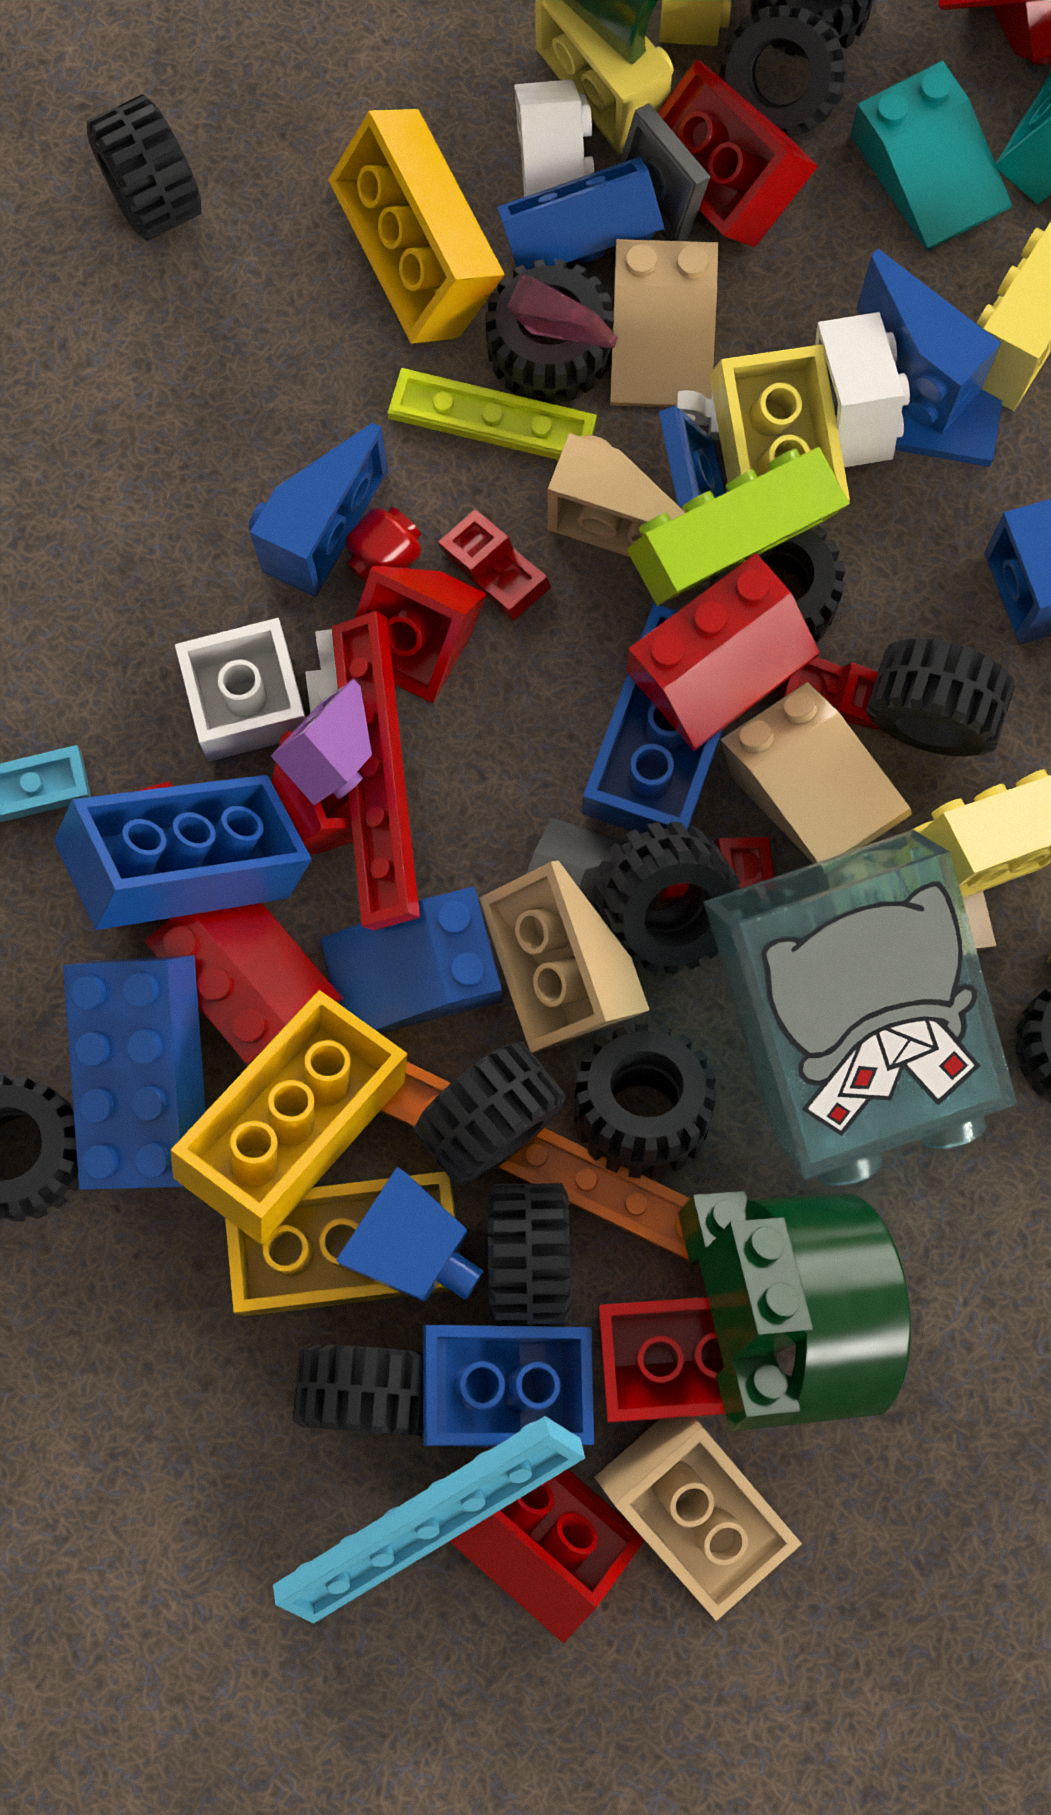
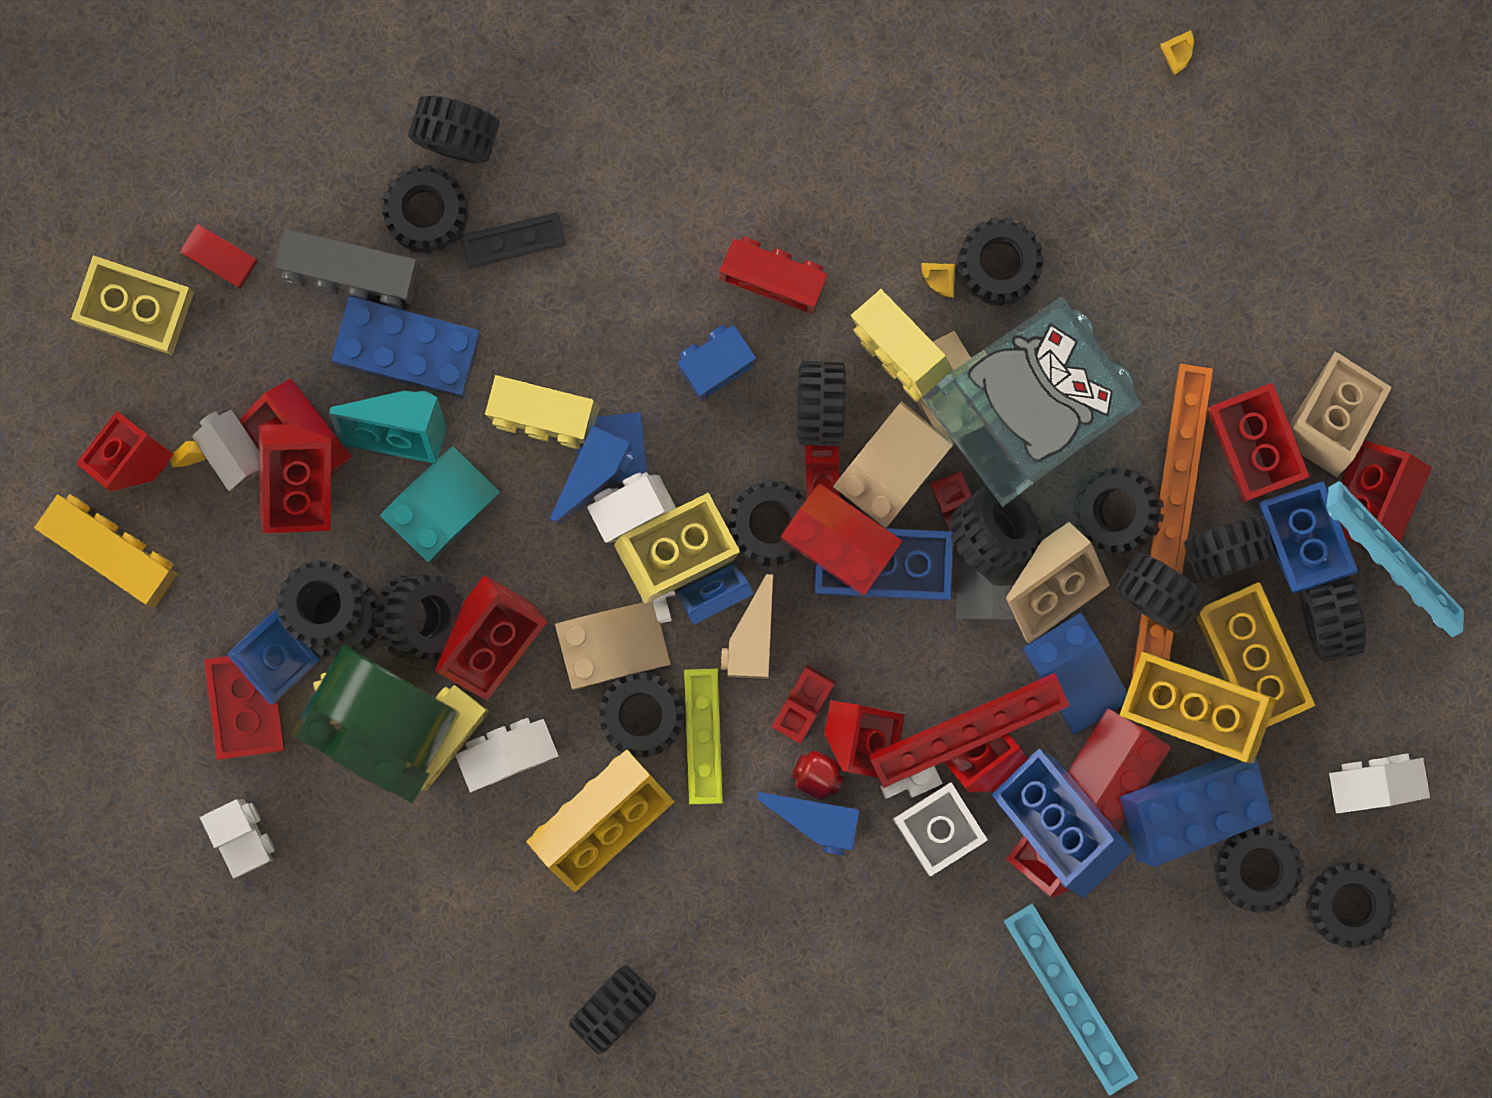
camera: 110 degrees left, 10 degrees up
(75, 1385) = (1383, 784): none -> white brick
(328, 746) = (967, 760): medium lavender slope -> none
(410, 1243) = (1249, 615): blue torso -> none
(557, 316) = (643, 713): clear pink slope -> none
(583, 216) = (559, 718): blue brick -> none
(674, 171) = (514, 674): dark grey tile -> none
(736, 525) = (762, 553): lime brick -> none
(806, 1277) = (1201, 384): dark green piece -> none

